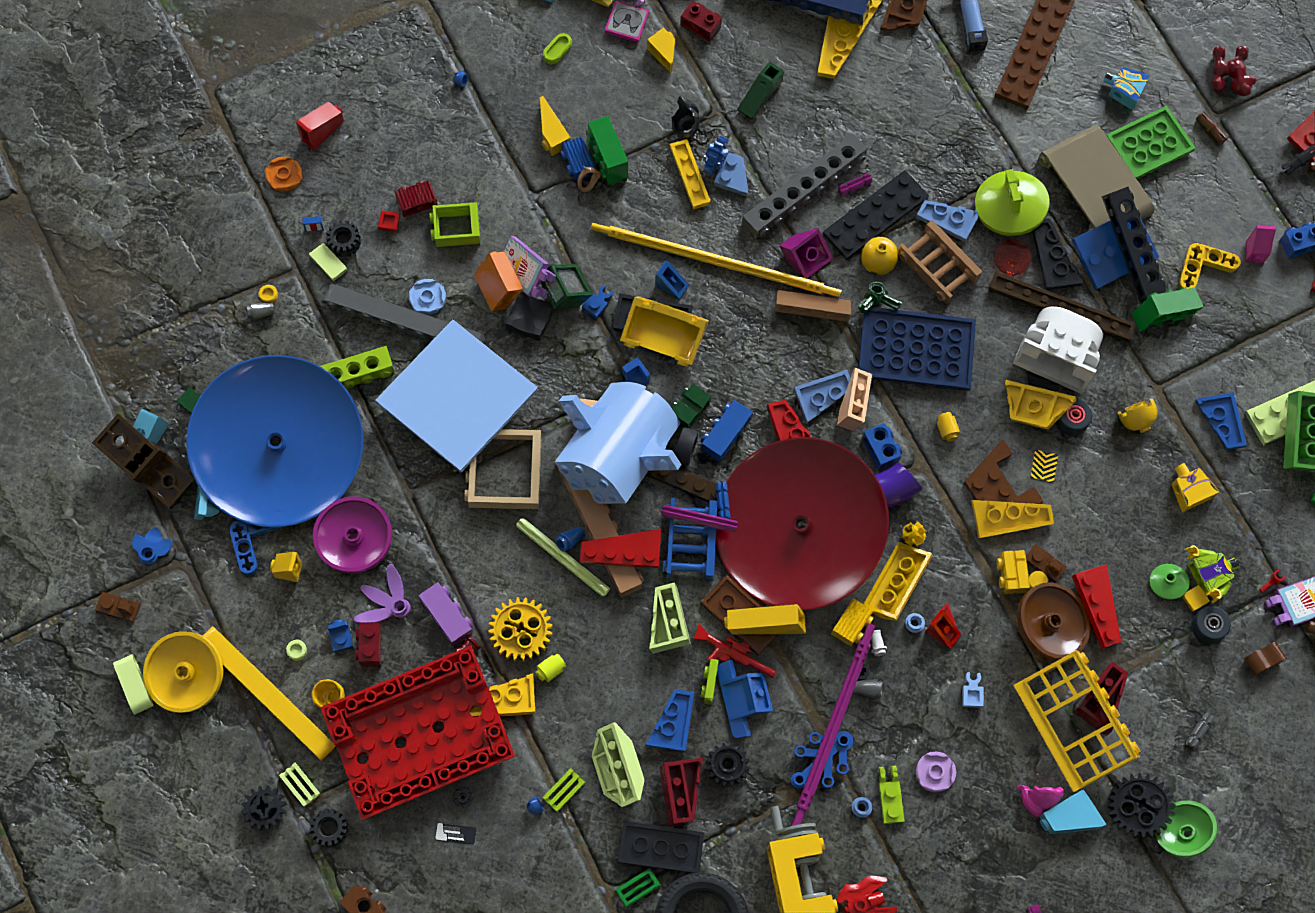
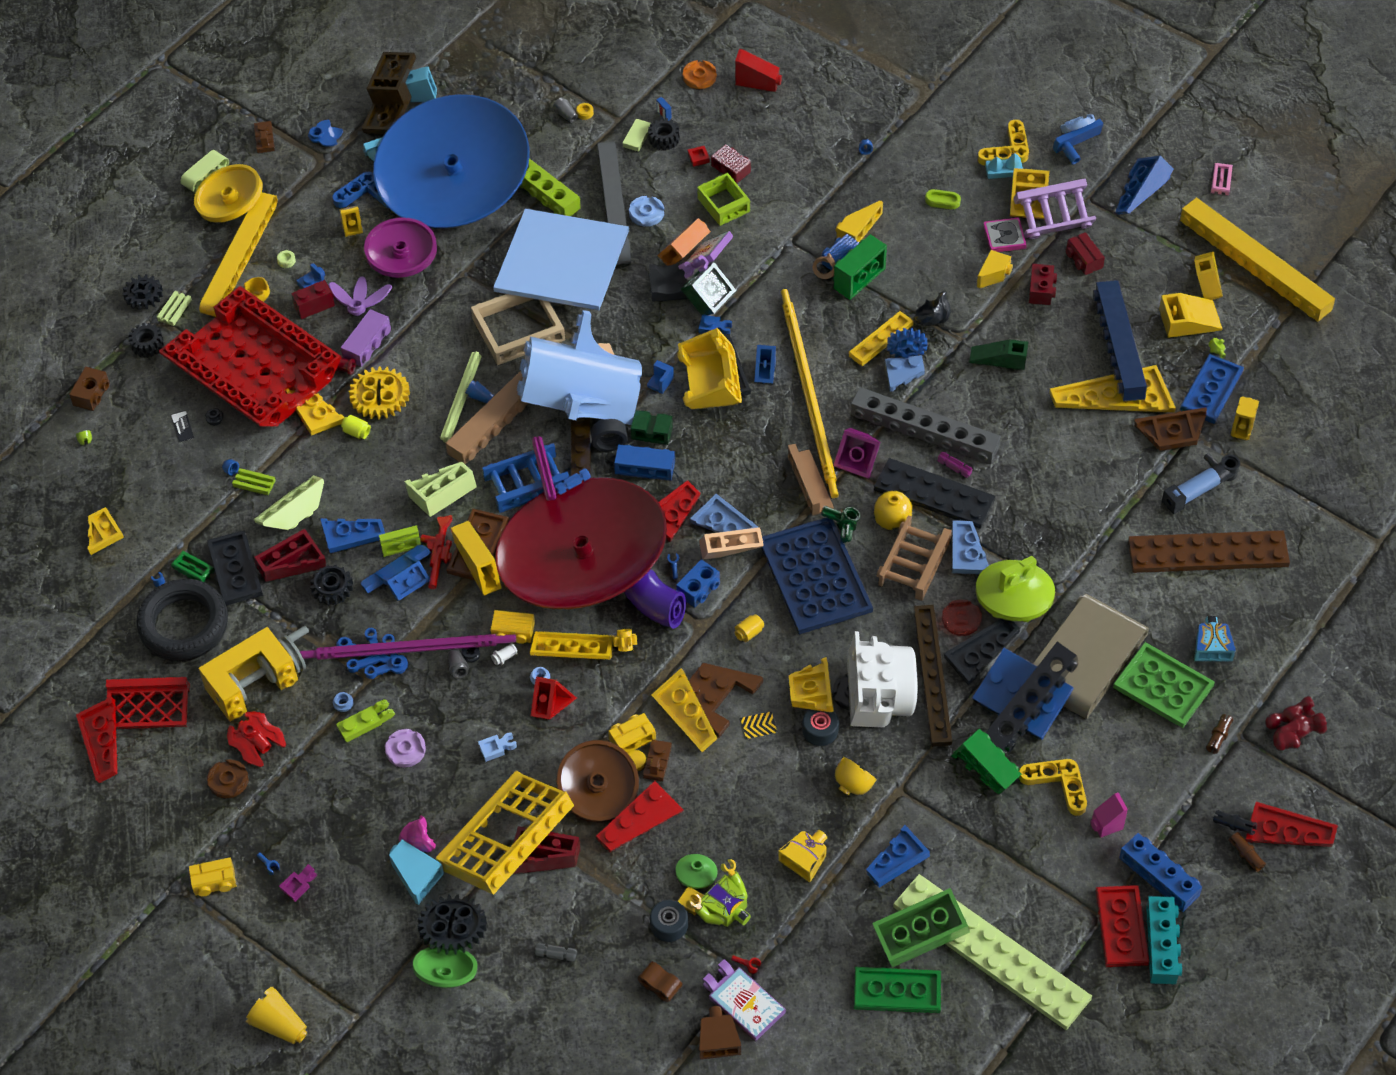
camera: 70 degrees right, 15 degrees down
(630, 550) = (485, 429): red wing -> none

